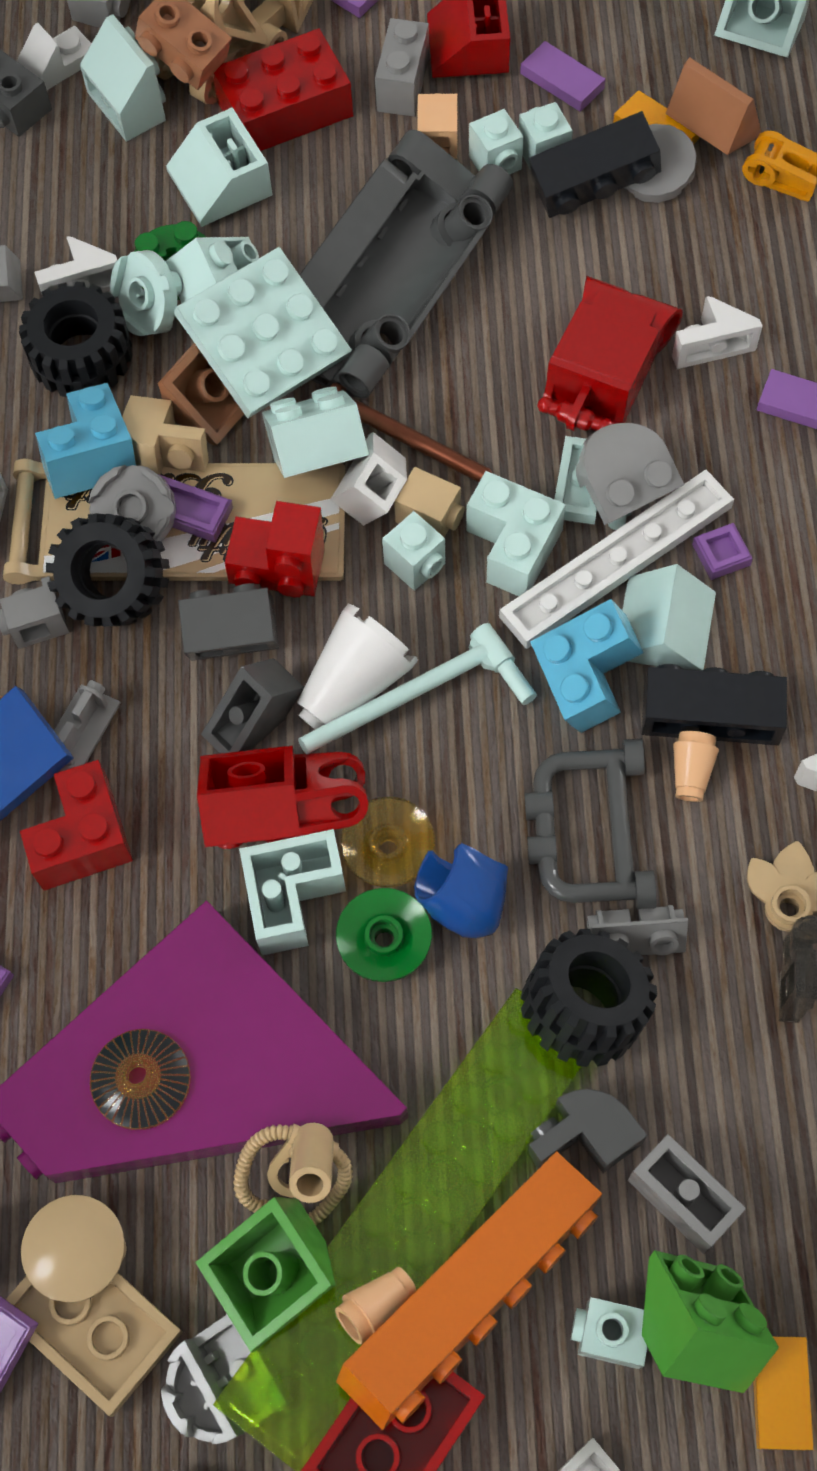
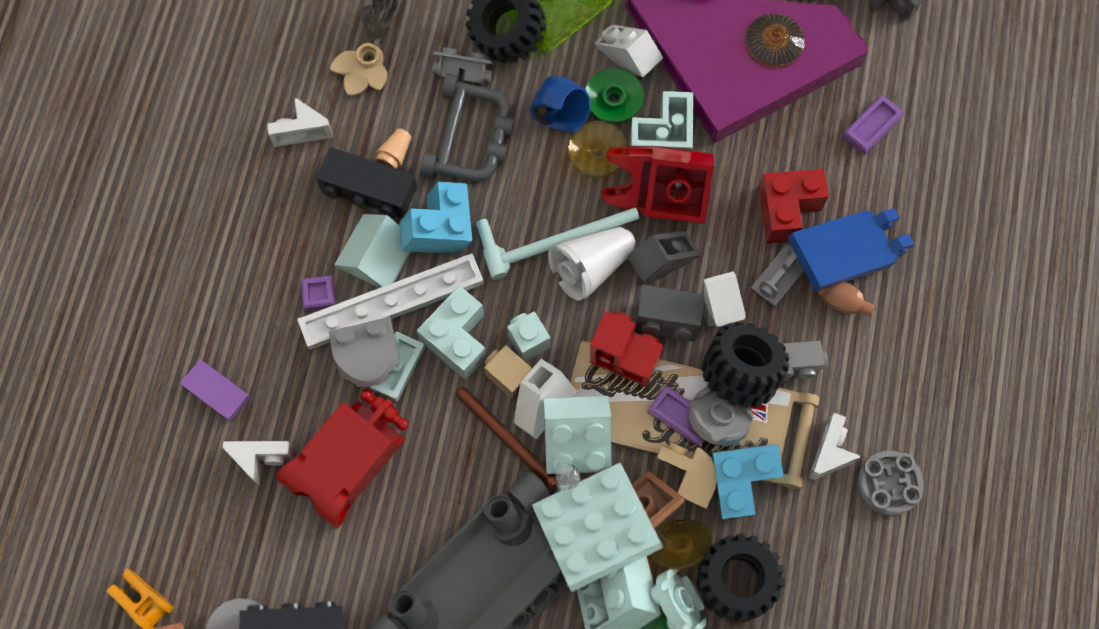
camera: 170 degrees left, 5 degrees up
(142, 339) = (682, 543): none -> clear yellow dish
(150, 636) = (722, 300): none -> white slope
(314, 374) = (567, 476): none -> clear hinge
(380, 1020) = (629, 49): none -> white slope

